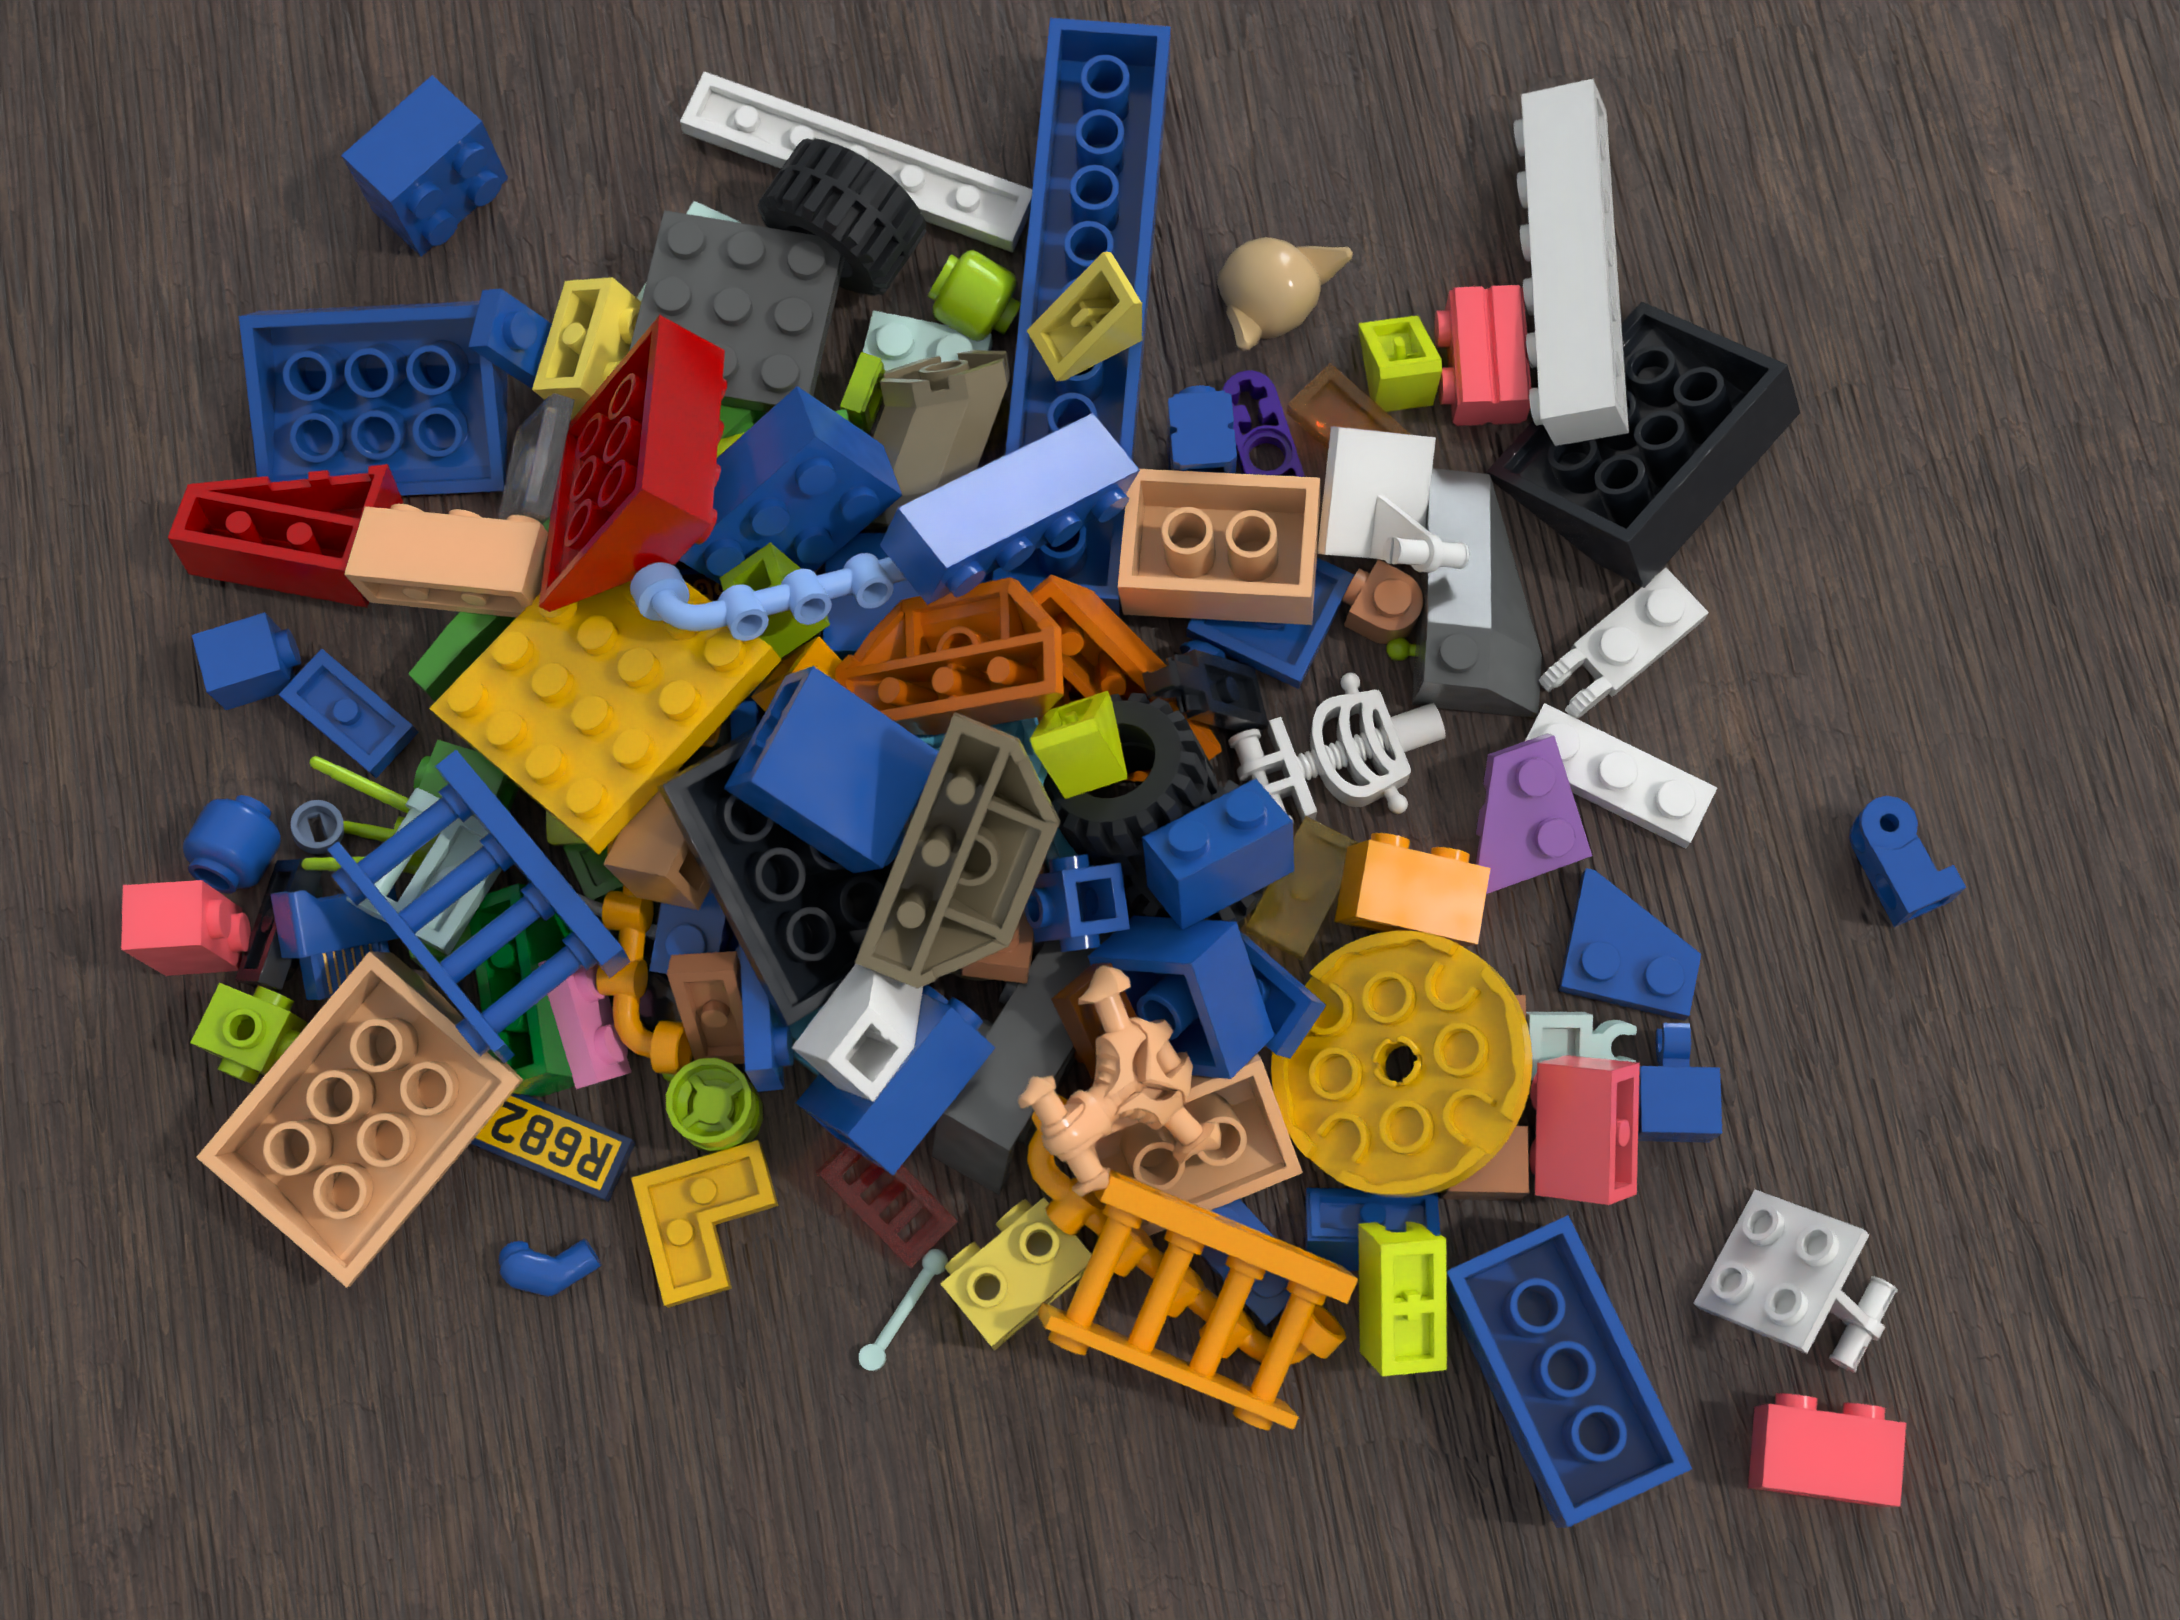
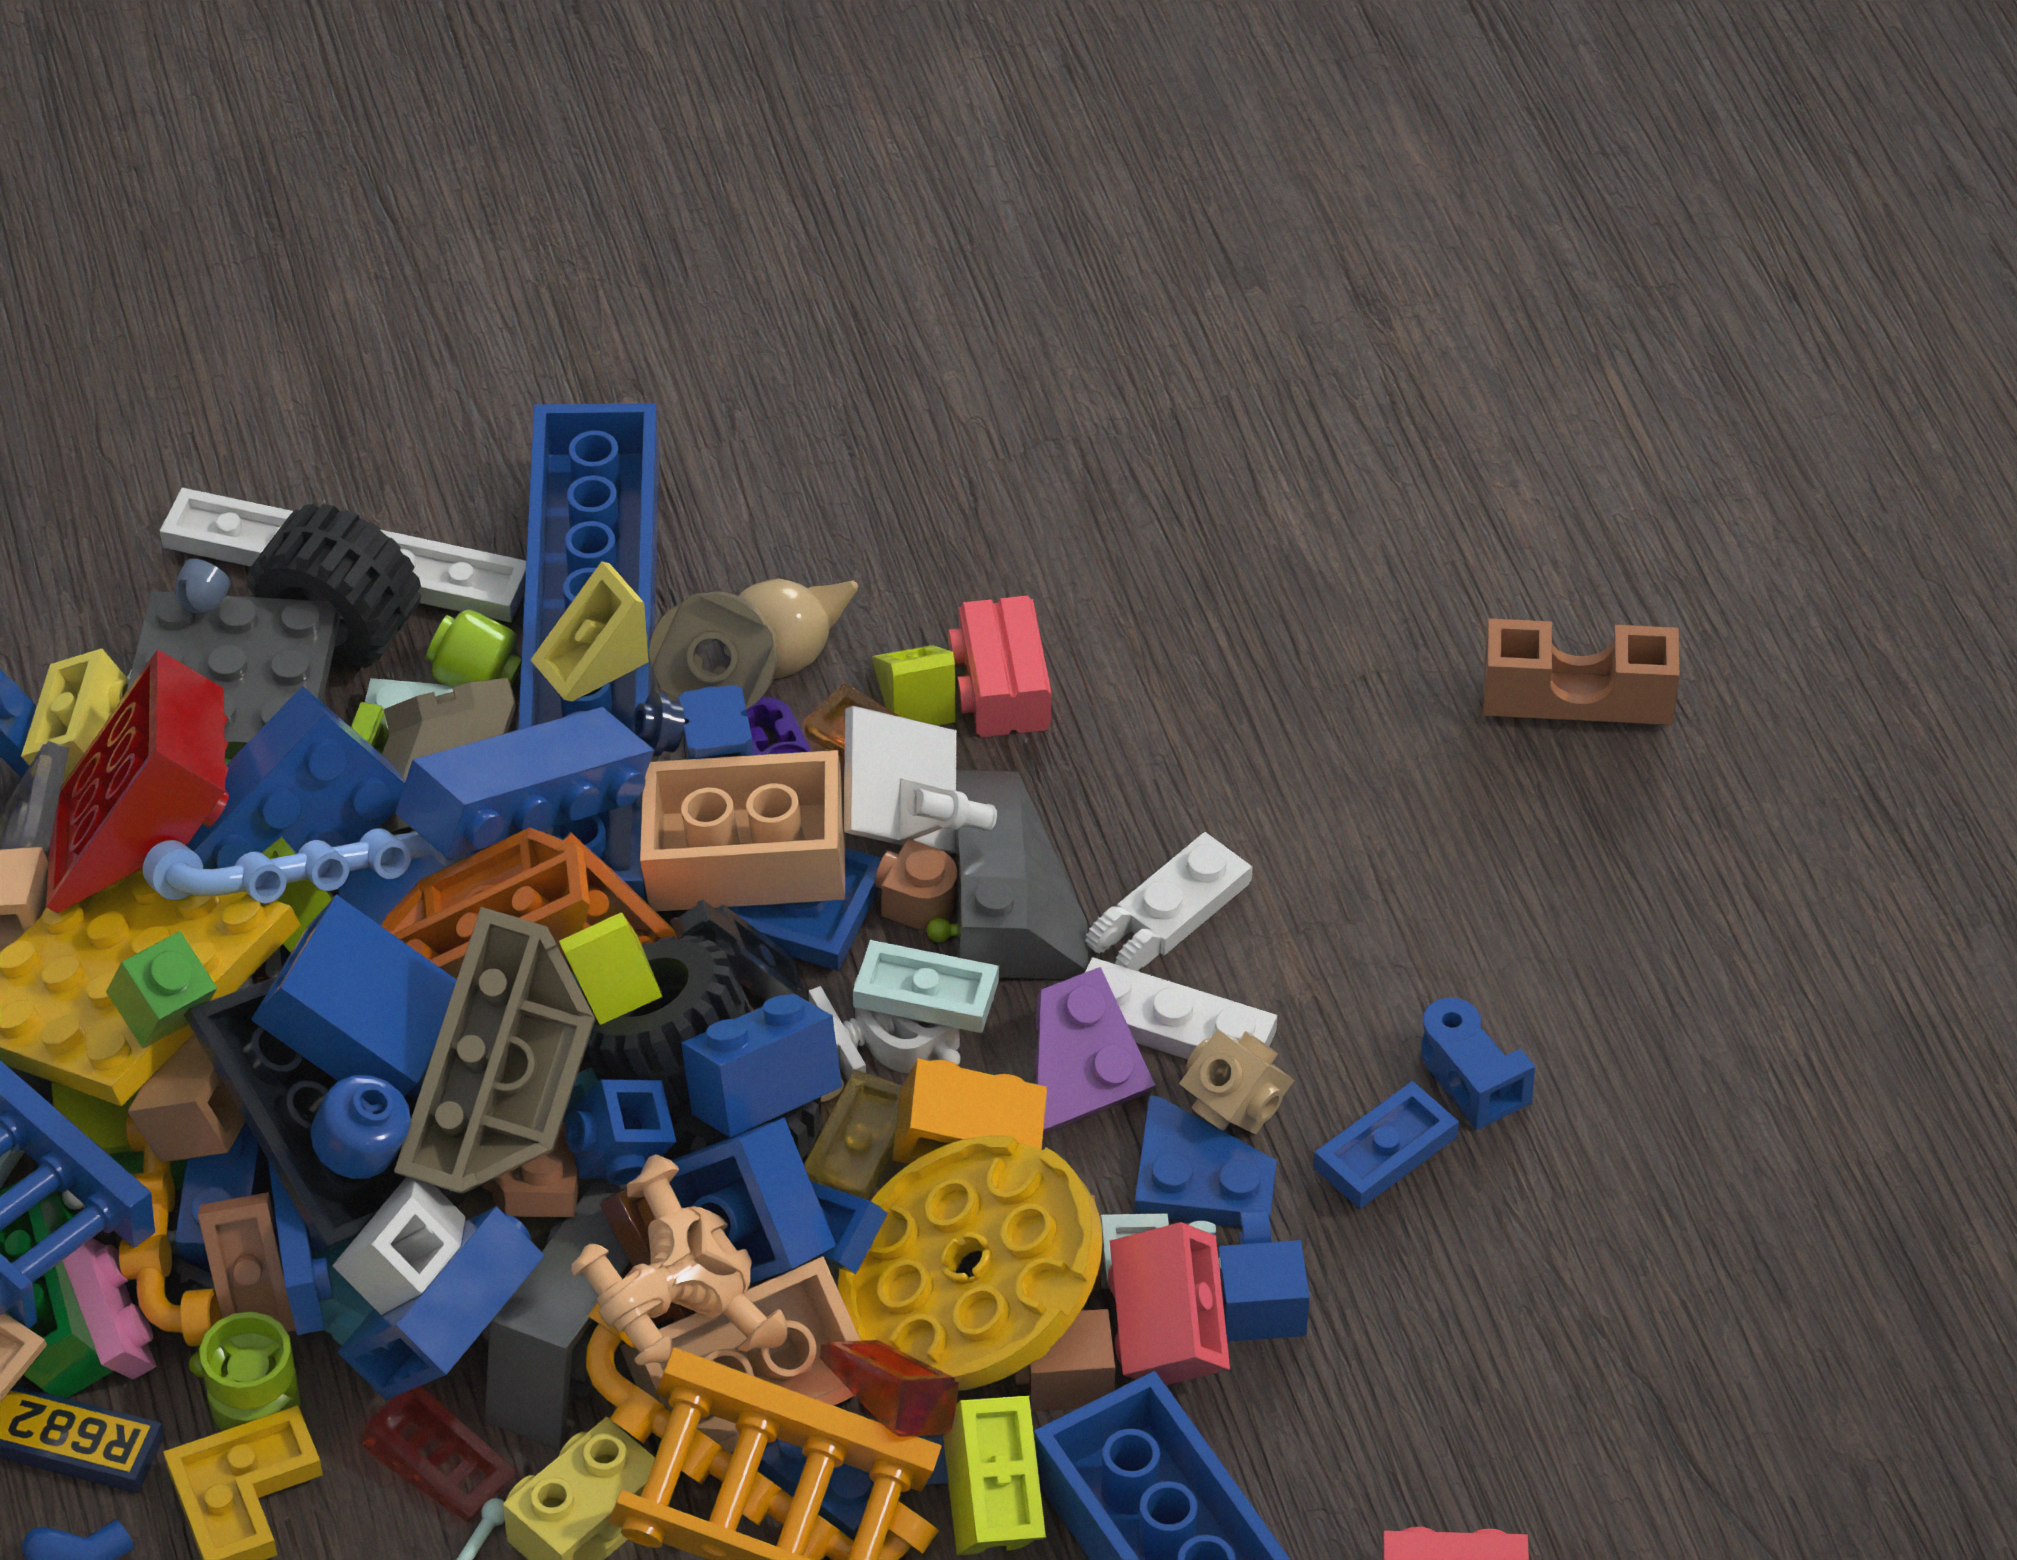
camera: 10 degrees left, 25 degrees down
(637, 757) = (159, 988): none -> bright green brick
(709, 224) = (201, 586): none -> sand blue hinge
(846, 920) = (360, 1126): none -> blue head
(1146, 427) = (659, 723): none -> dark blue plate
(1214, 302) = (703, 619): none -> dark tan plate
(1324, 1241) = (894, 1386): none -> clear red slope
(1382, 738) = (926, 986): none -> light aqua plate
(1572, 264) = (1080, 578): white brick -> none
(1689, 860) = (1235, 1081): none -> tan brick
(1695, 427) = (1176, 726): black slope -> none
(1786, 1275) = (1398, 1414): white plate -> none
(1808, 947) = (1386, 1144): none -> blue plate
(2105, 433) = (1624, 683): none -> nougat arch

